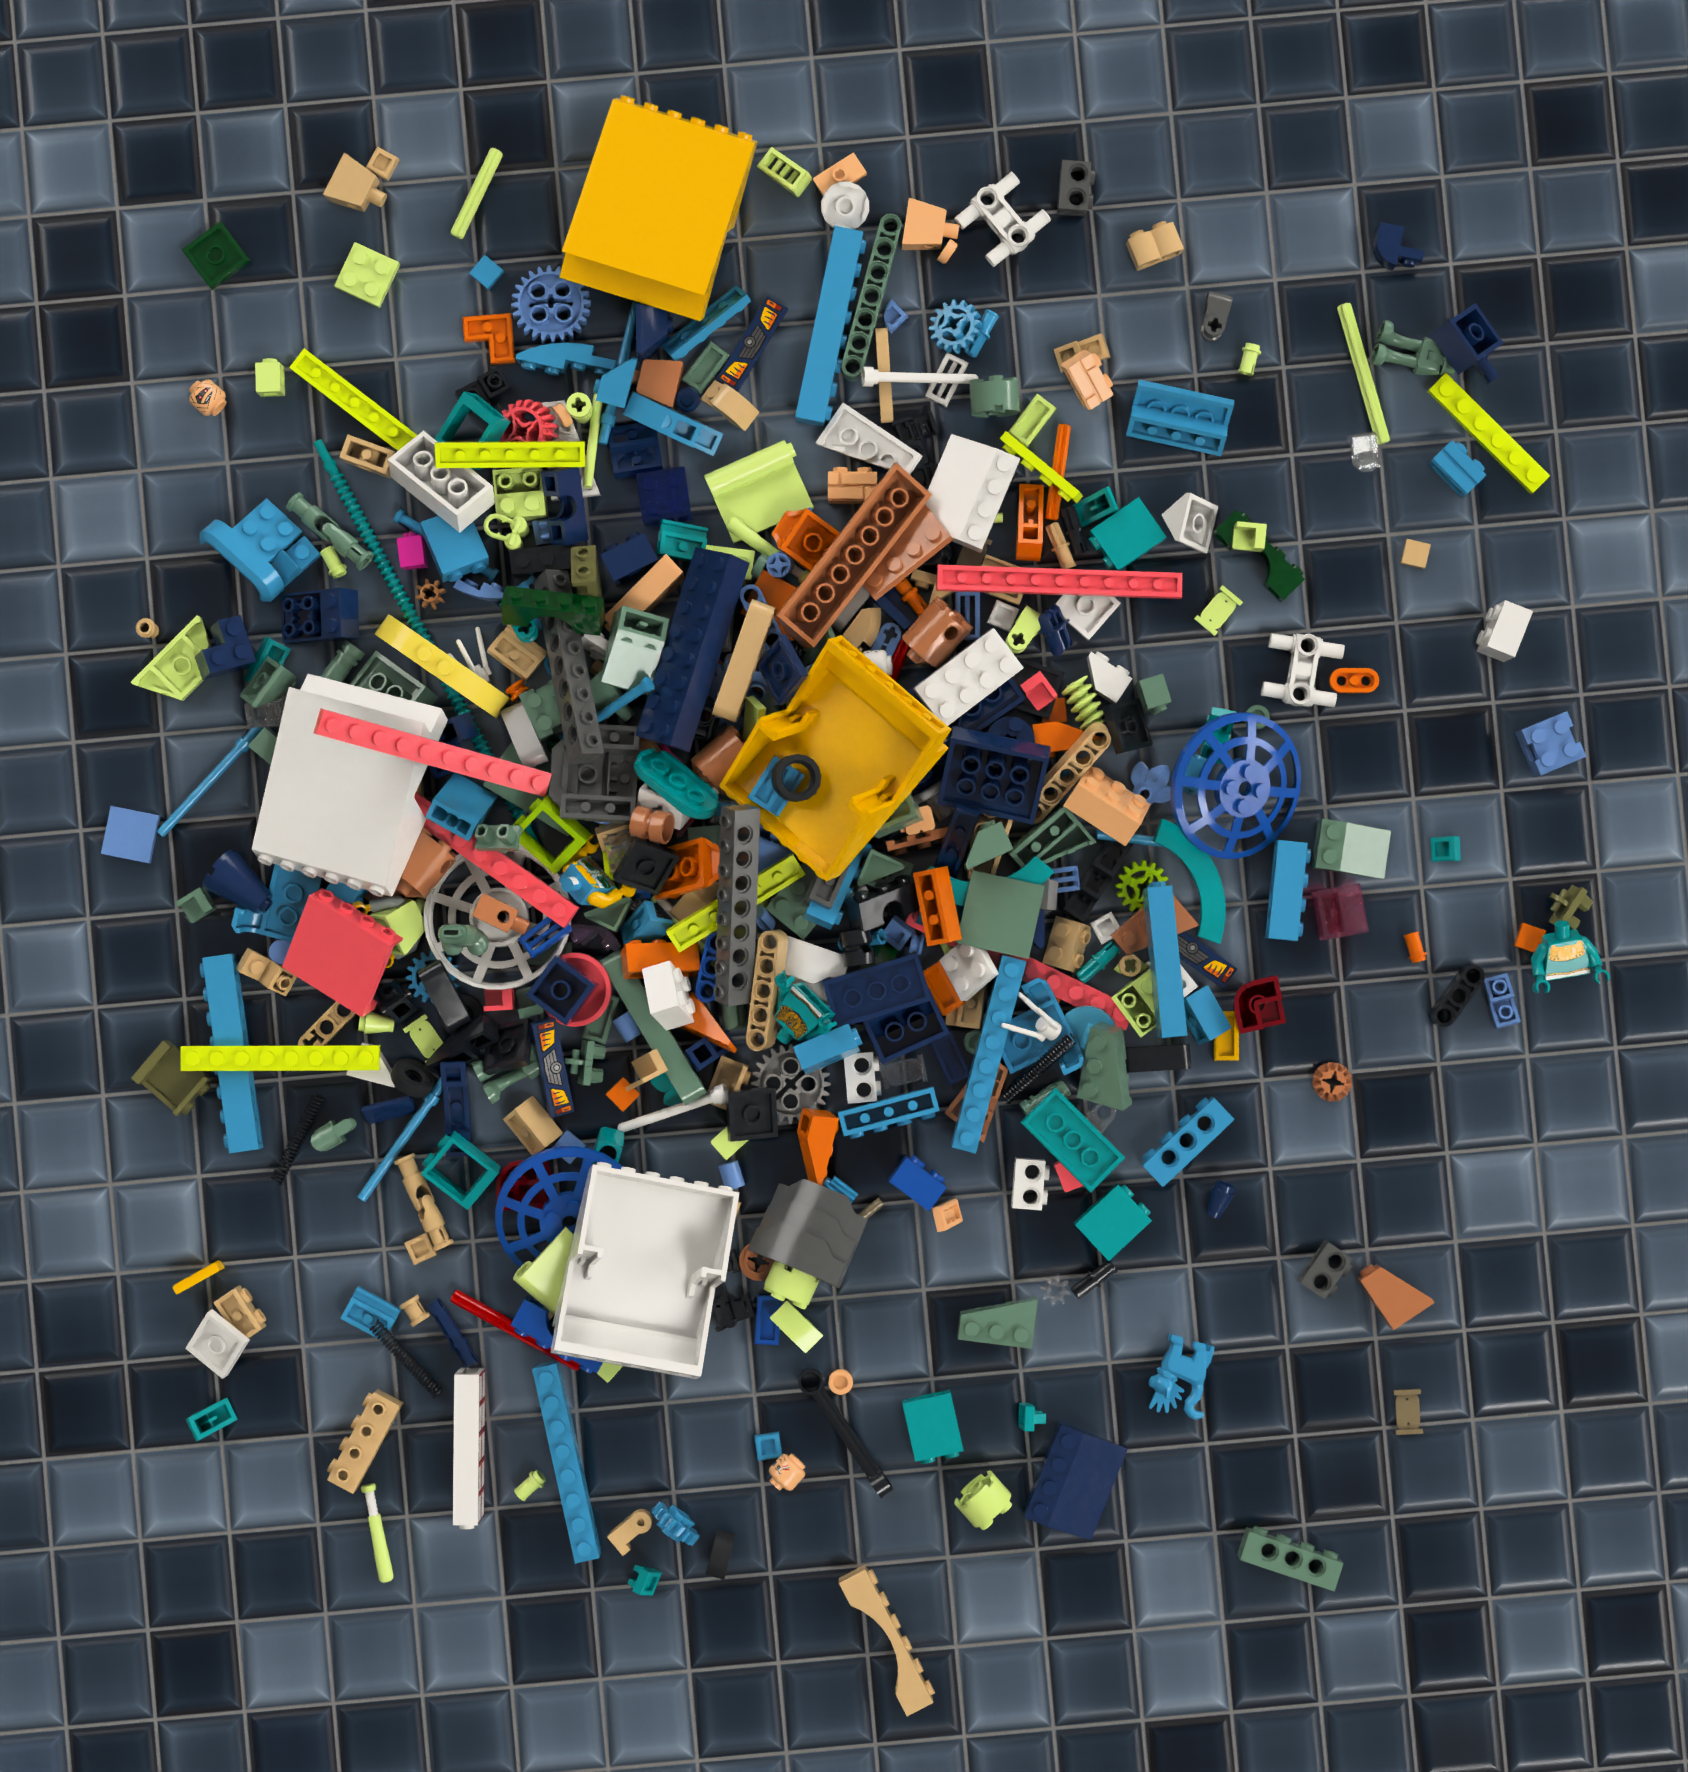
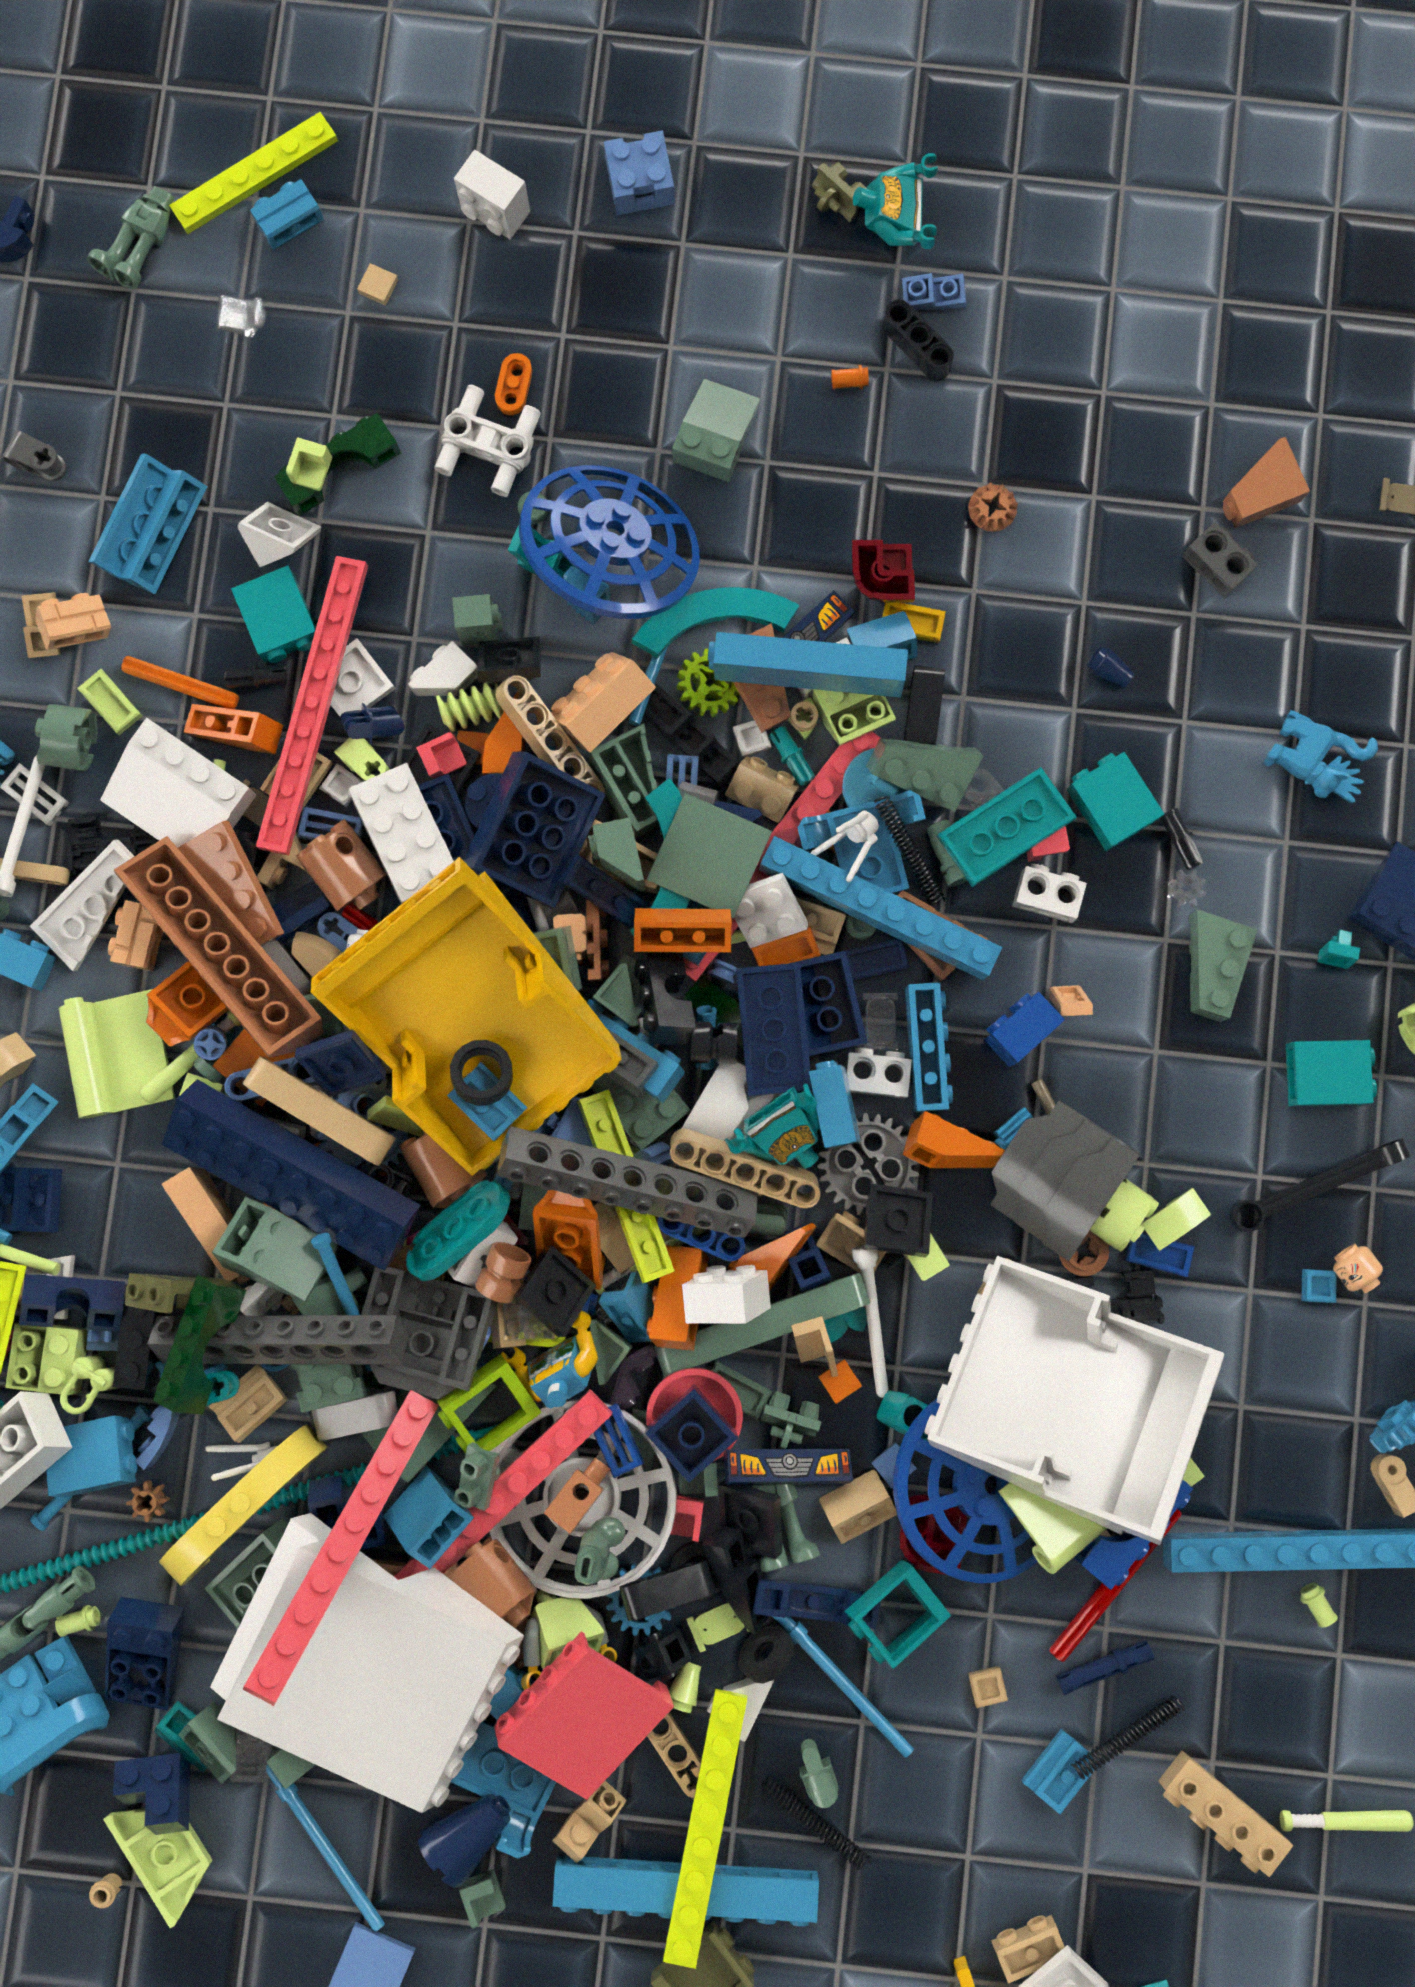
camera: 80 degrees left, 5 degrees down
(278, 951) = (565, 1799): medium blue tile -> none
(343, 662) = (208, 1633): sand green axle -> none
(389, 1109) = (800, 1692): dark blue slope -> none
(412, 551) = (88, 1514): dark pink brick -> none
(414, 1310) = (1067, 1711): tan bush -> none
(428, 1212) = (945, 1667): tan piece -> none
(469, 1447) = (1259, 1677): white brick -> none
(516, 689) = (294, 1414): orange bush -> none
(627, 1027) = (755, 1358): medium blue piece -> none
(629, 559) = (160, 1233): dark blue brick -> none
(664, 495) = (93, 1173): clear blue piece -> none
(680, 539) = (151, 1165): teal plate -> none
(731, 1174) = (969, 1262): medium blue piece -> none
(840, 1381) = (1253, 1178): light nougat tile -> none
(898, 932) = (706, 989): medium blue tile -> none
(911, 596) = (290, 890): orange pin -> none
(1047, 475) = (175, 692): neon yellow plate -> none
(1060, 546) = (269, 698): tan axle -> none
(1096, 507) = (232, 642): teal slope -> none
(1153, 781) = (584, 645): medium blue plate -> none
(1218, 610) = (393, 526): yellowish green piece -> none
(1219, 1120) = (1016, 649): dark azure brick -> none
(1249, 359) = (91, 425): yellowish green pin -> none
(1286, 890) = (750, 511): dark azure brick -> none
(1339, 911) = (789, 457): clear pink slope -> none
(1363, 372) = (144, 300): yellowish green axle -> none
(1445, 849) = (738, 321): teal slope -> none
(1468, 341) = (136, 167): dark blue brick -> none
(1528, 937) = (865, 245): orange tile -> none

